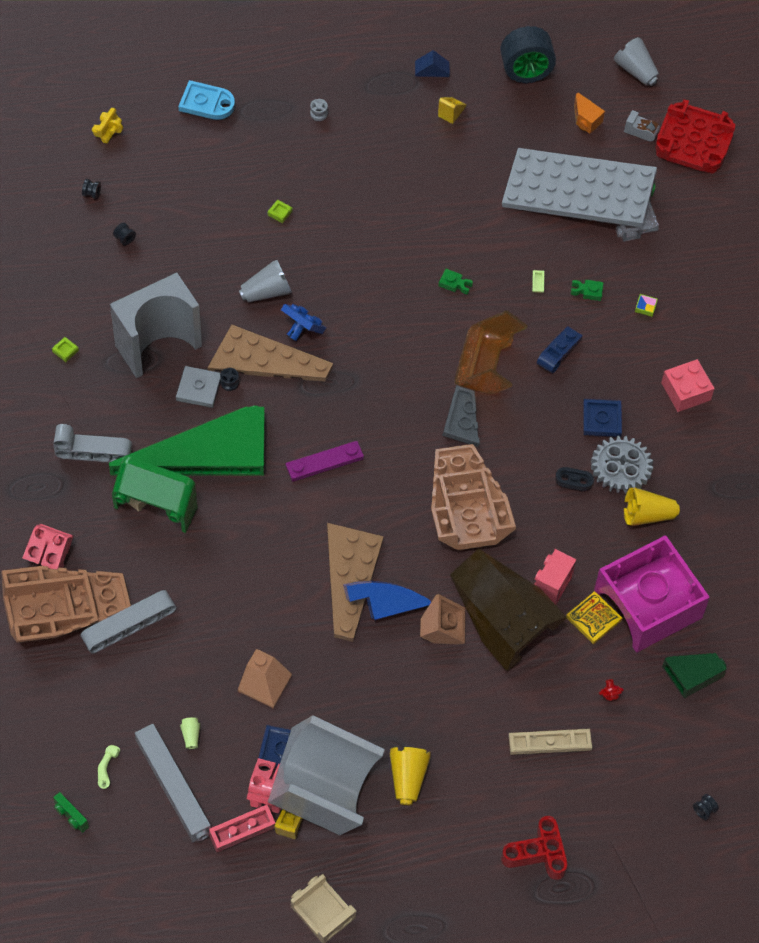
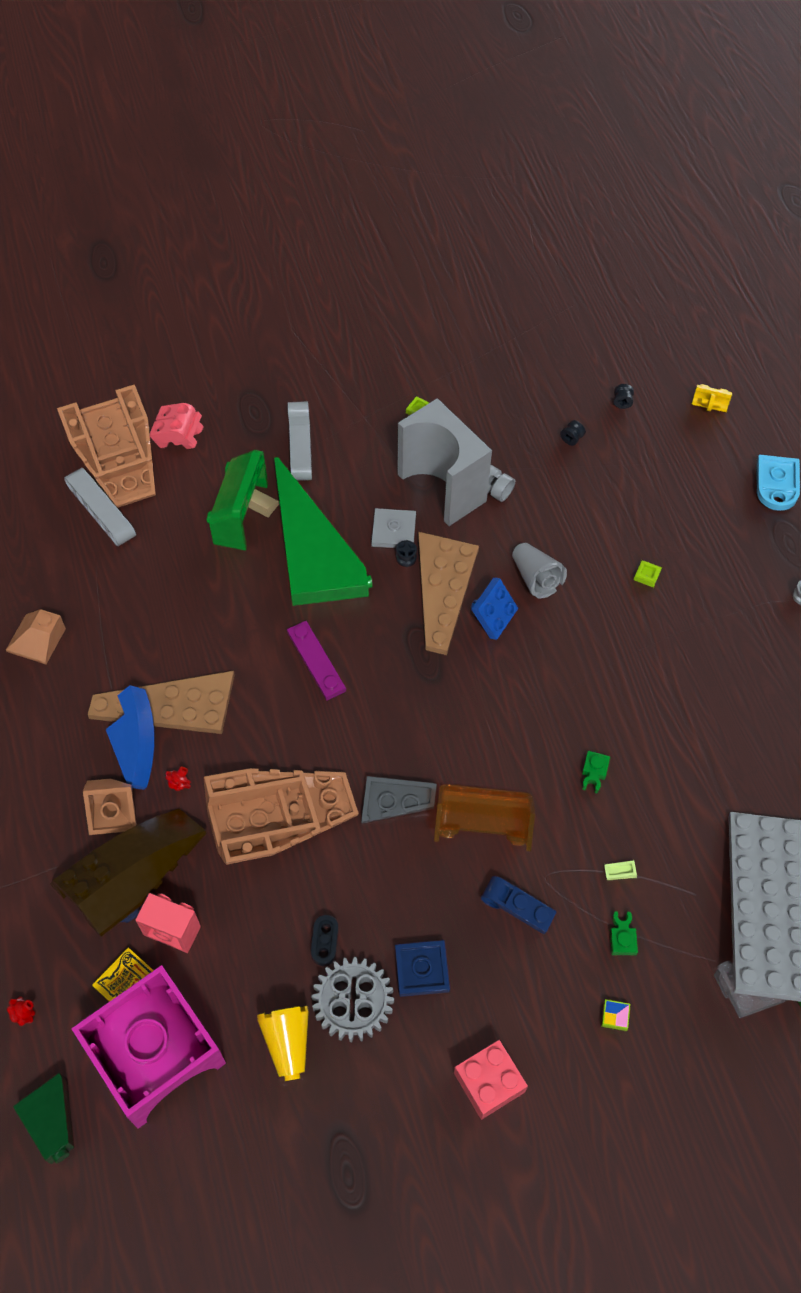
camera: 85 degrees right, 0 degrees up
(426, 570) = (177, 779): none -> red plant

